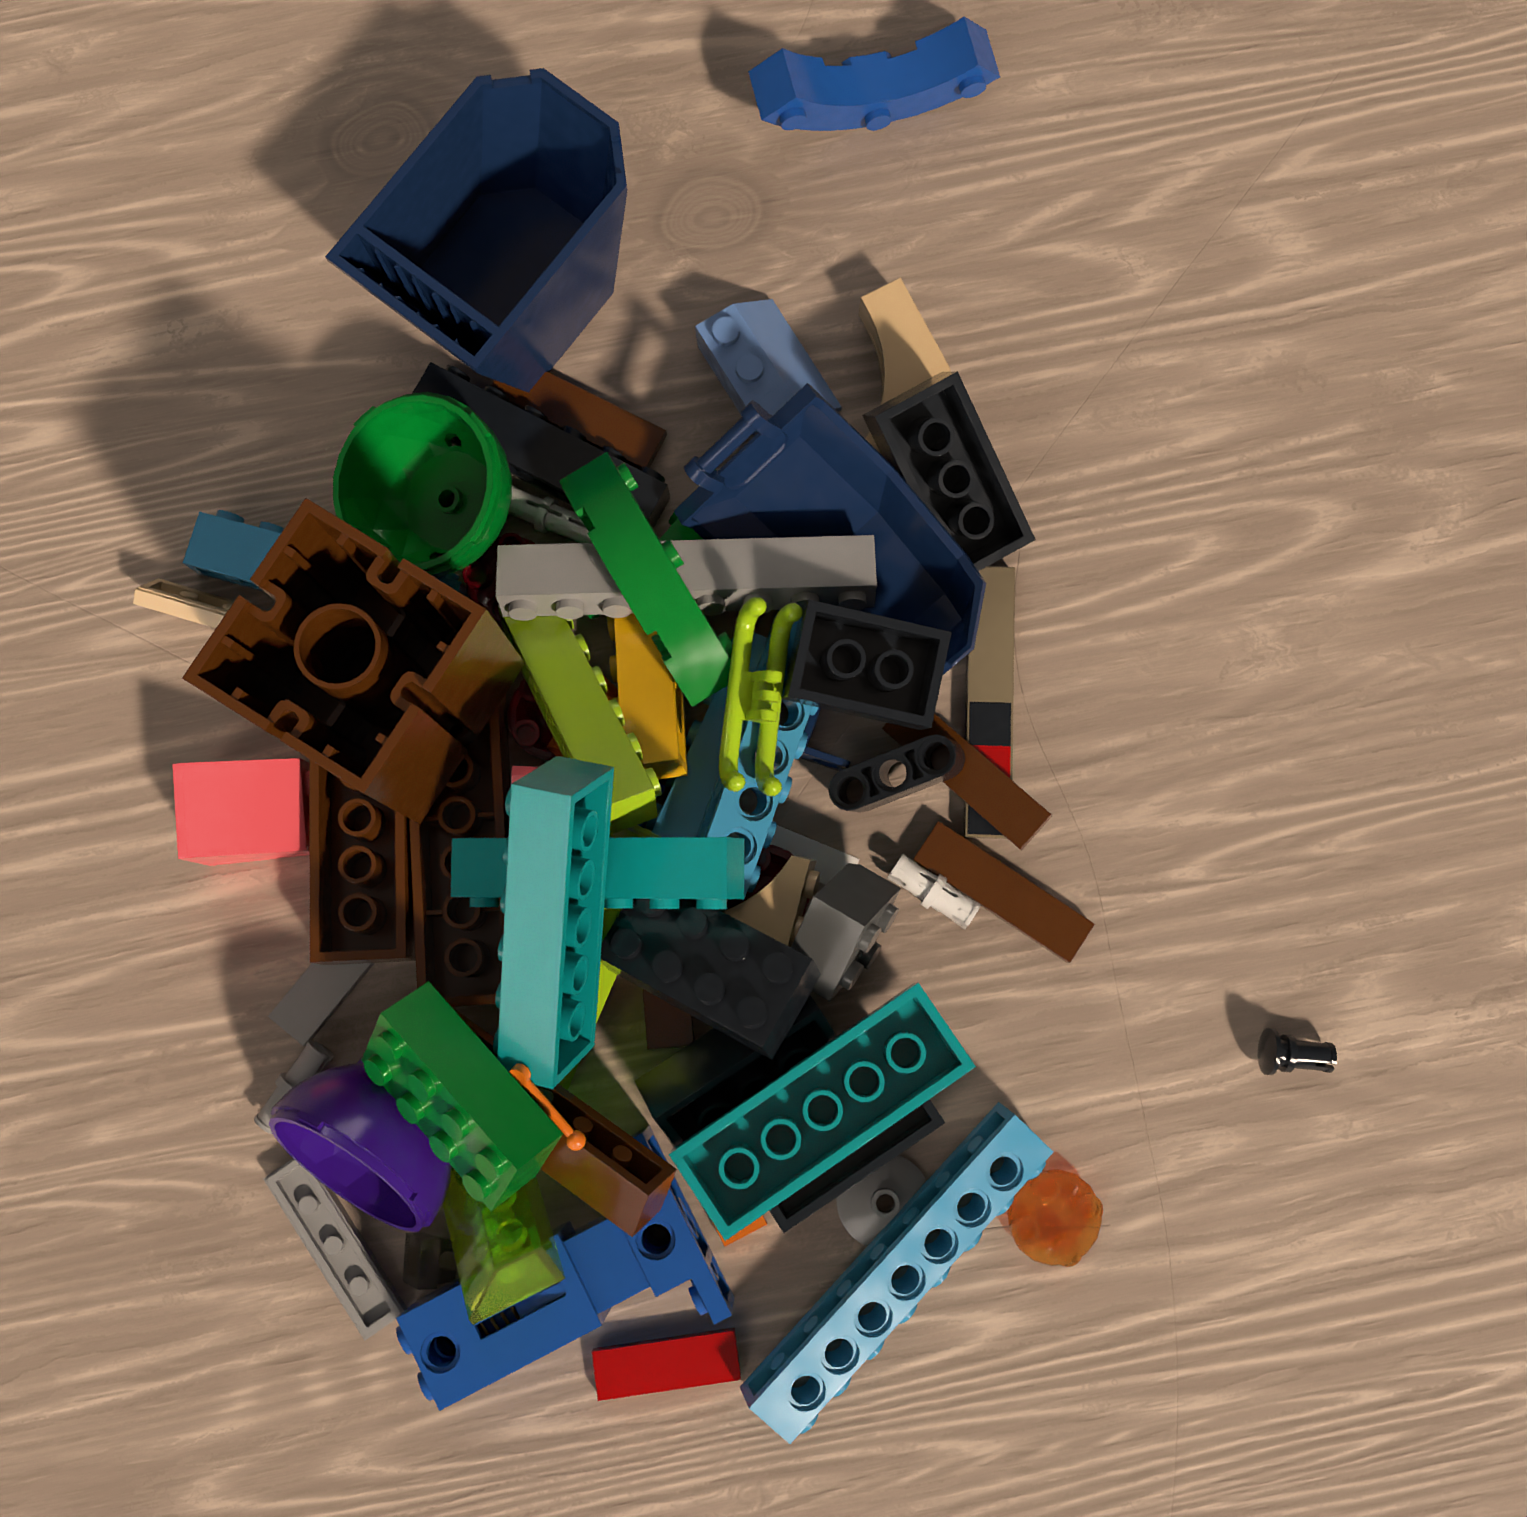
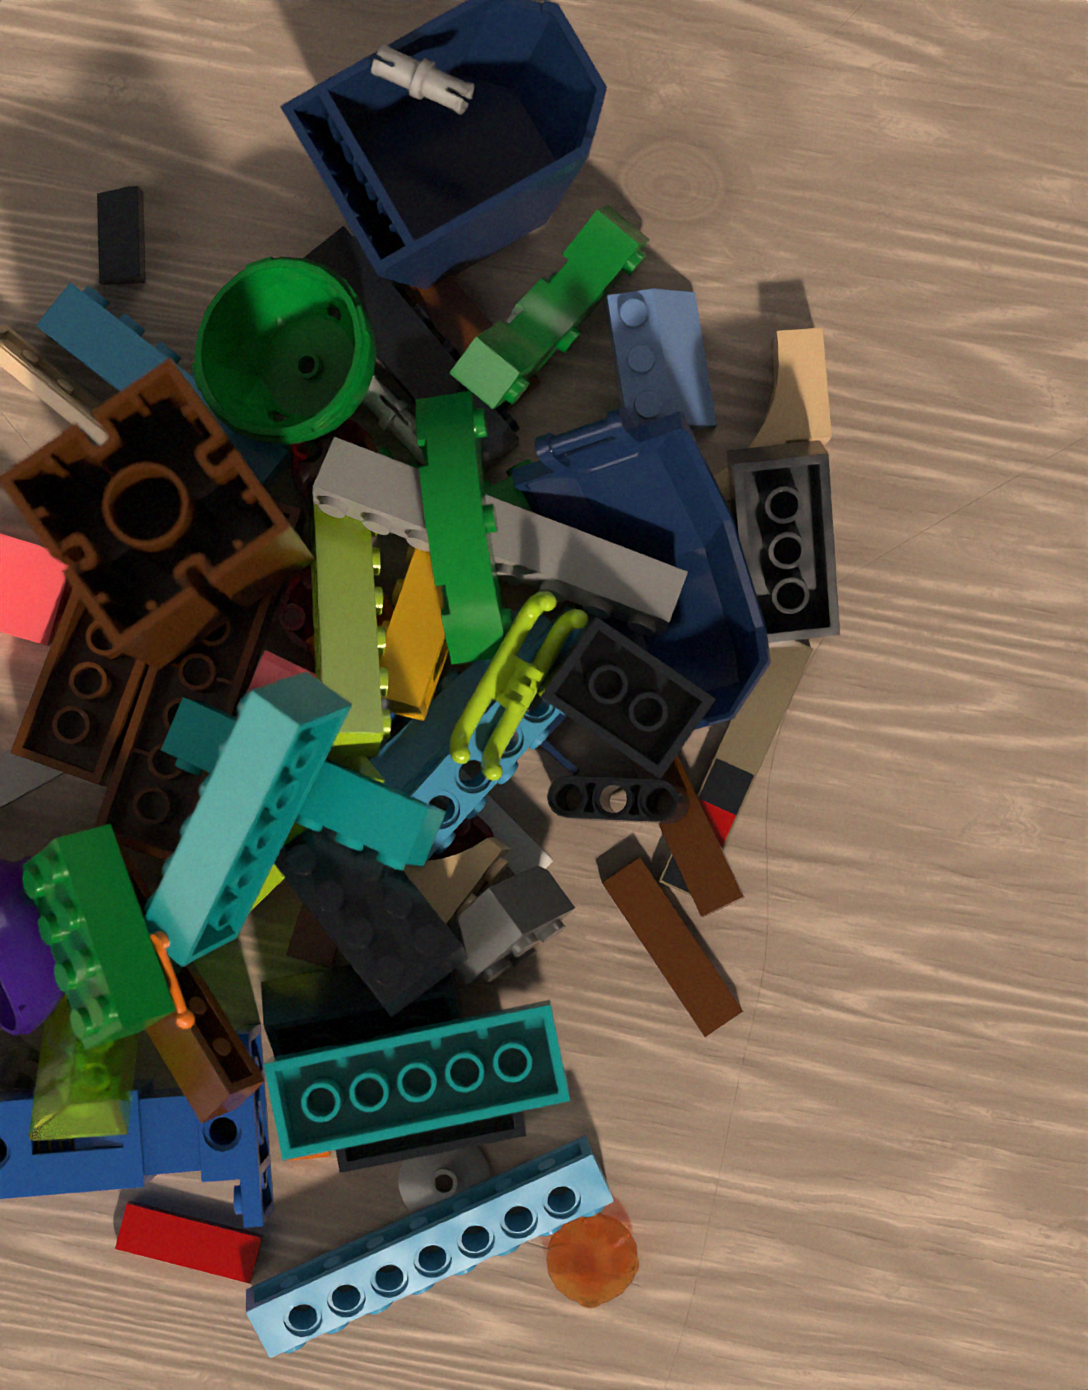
camera: 15 degrees right, 5 degrees up
(232, 457) = (121, 236): none -> black slope
(446, 177) = (422, 79): none -> light grey pin
(649, 370) = (550, 313): none -> green brick
(874, 87) = (880, 124): blue brick -> none
(934, 891) = (608, 920): white pin -> none
(1288, 1053) = (870, 1203): black pin -> none

